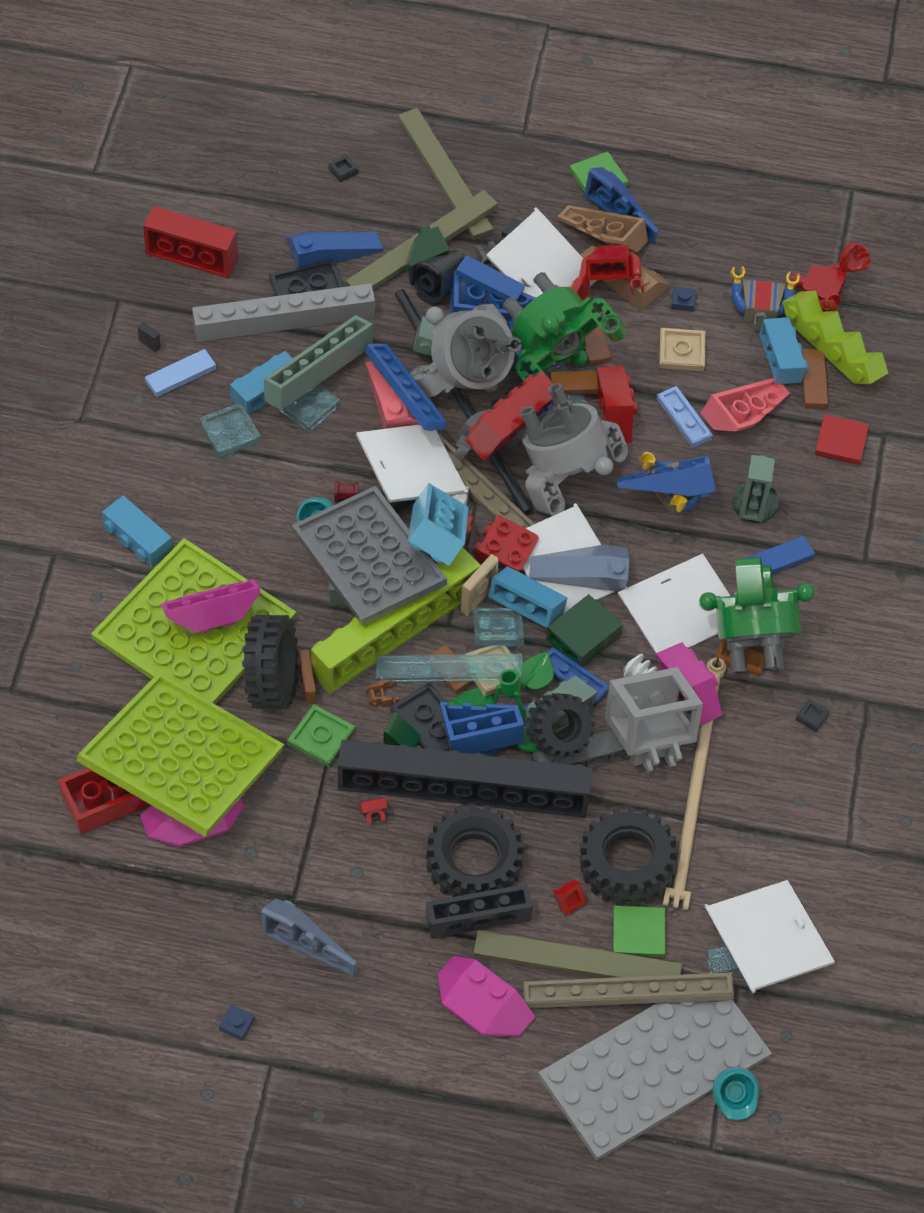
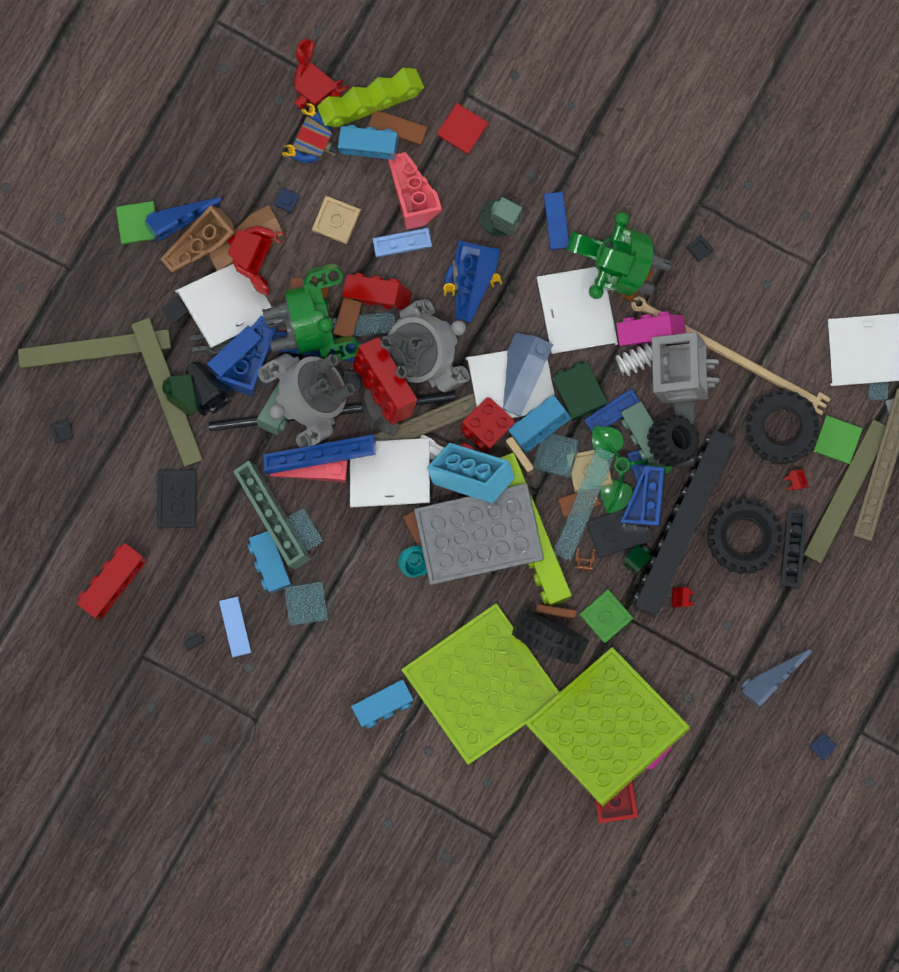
camera: 60 degrees left, 25 degrees up
(212, 607) = (477, 666): dark pink wedge -> none
(283, 312) = (204, 527): light grey brick -> none
(318, 246) = (140, 474): blue wedge -> none
(345, 491) = (395, 530): dark red bush -> none
(482, 999) = (858, 571): dark pink wedge -> none

